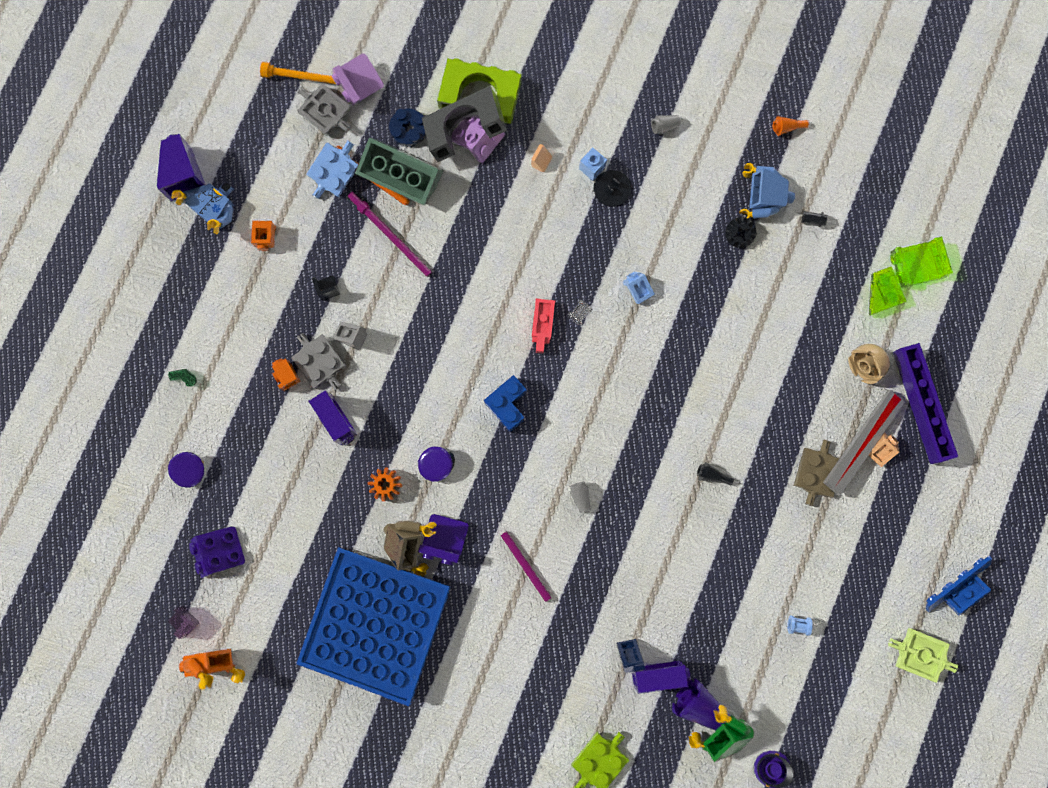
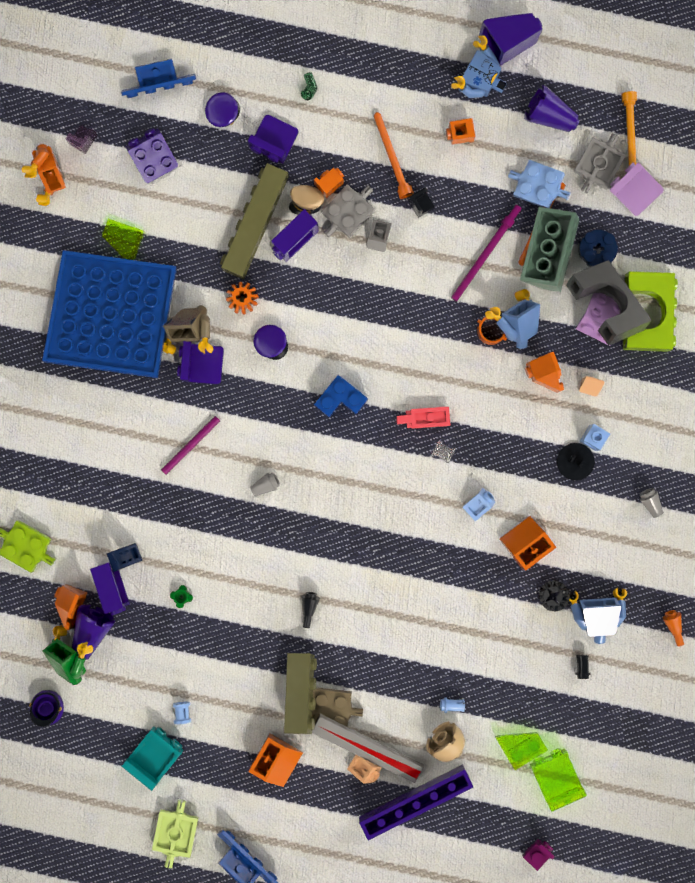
camera: 75 degrees right, 5 degrees up
(135, 531) = (156, 76): none -> blue bracket
(228, 422) = (273, 139): none -> dark purple bracket
(262, 145) = (551, 111): none -> dark purple cone
(296, 401) = (305, 198): none -> tan piece
(297, 597) = (123, 238): none -> clear neon green wing
(308, 301) = (404, 189): none -> orange piece
(309, 457) = (255, 221): none -> olive brick
(463, 230) = (483, 339): none -> orange piece
(464, 212) = (519, 321): none -> medium blue torso
(520, 197) = (545, 372): none -> orange slope
(668, 725) = (67, 604): none -> orange slope
(682, 598) = (175, 595): none -> green plate
(685, 247) = (527, 543): none -> orange slope
(800, 499) = (299, 693): none -> olive brick
(833, 351) = (452, 705): none -> light blue pin
(841, 664) = (153, 757): none -> teal panel
(863, 538) = (275, 761): none -> orange slope
(990, 295) = (538, 854): none -> magenta bracket

